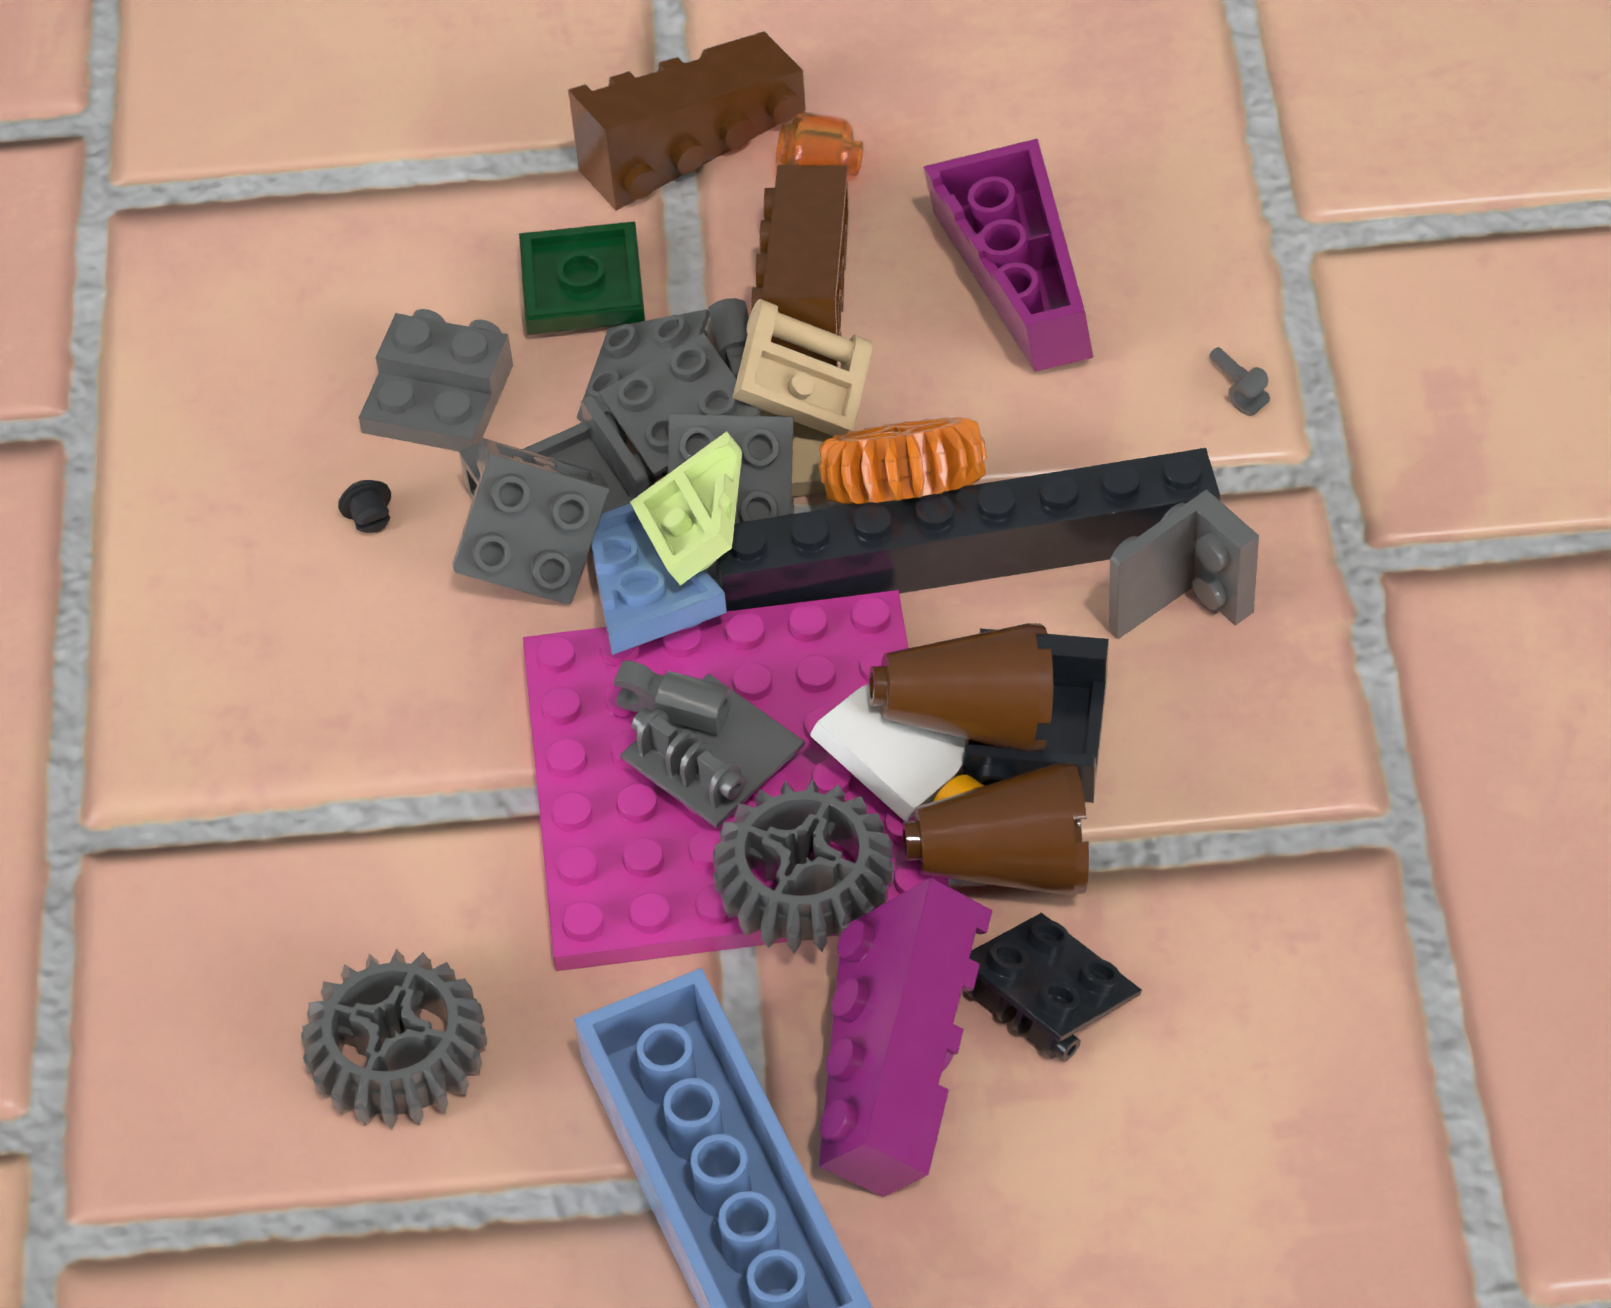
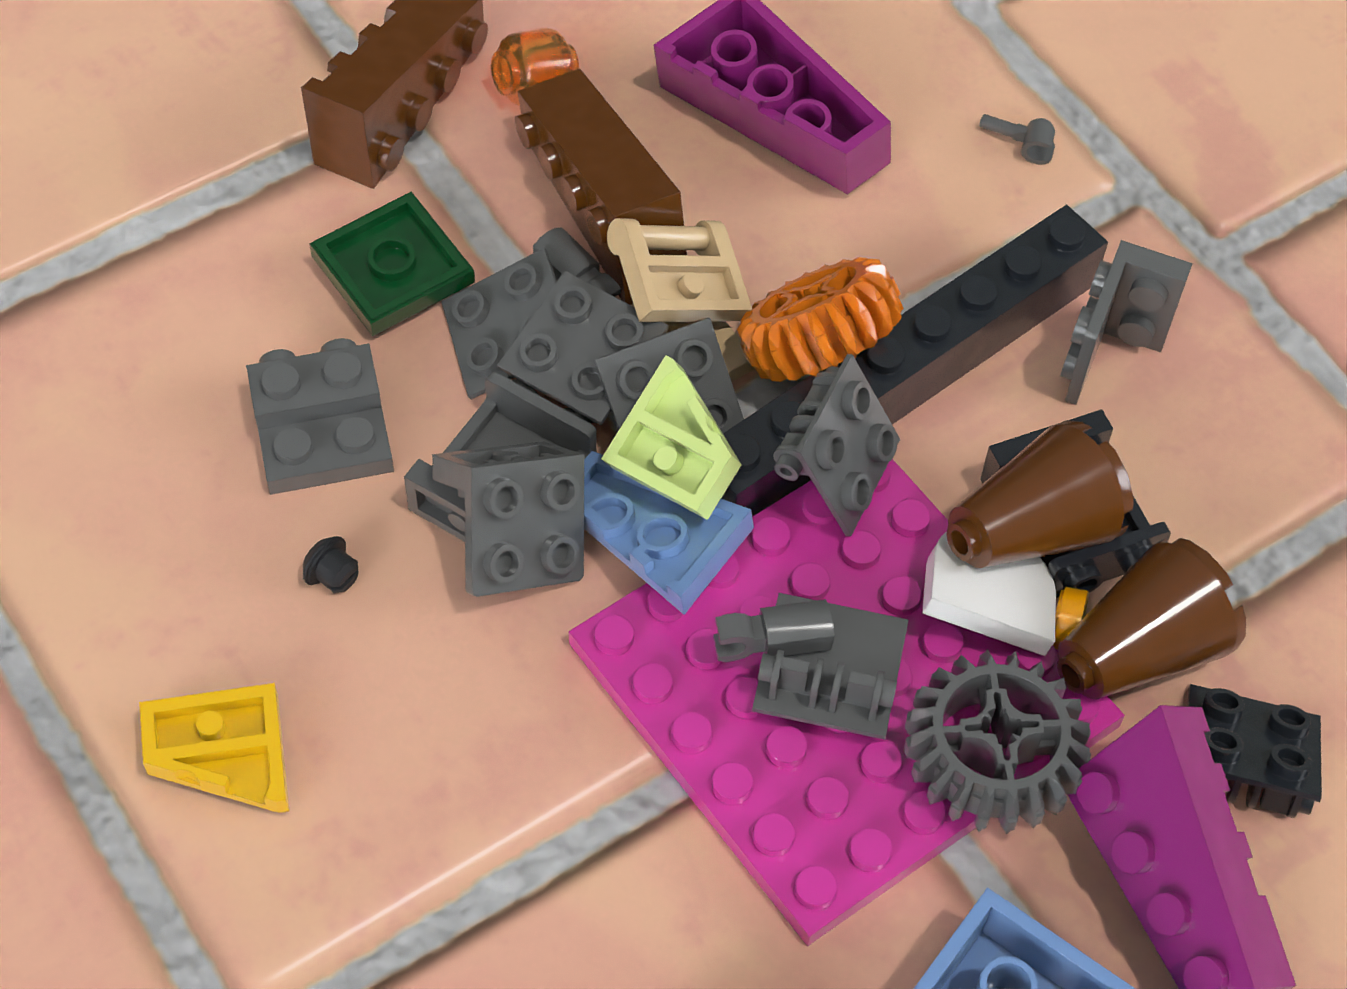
camera: 35 degrees left, 5 degrees up
(190, 606) = (219, 744): none -> yellow wing
(838, 570) = (839, 442): none -> dark grey hinge

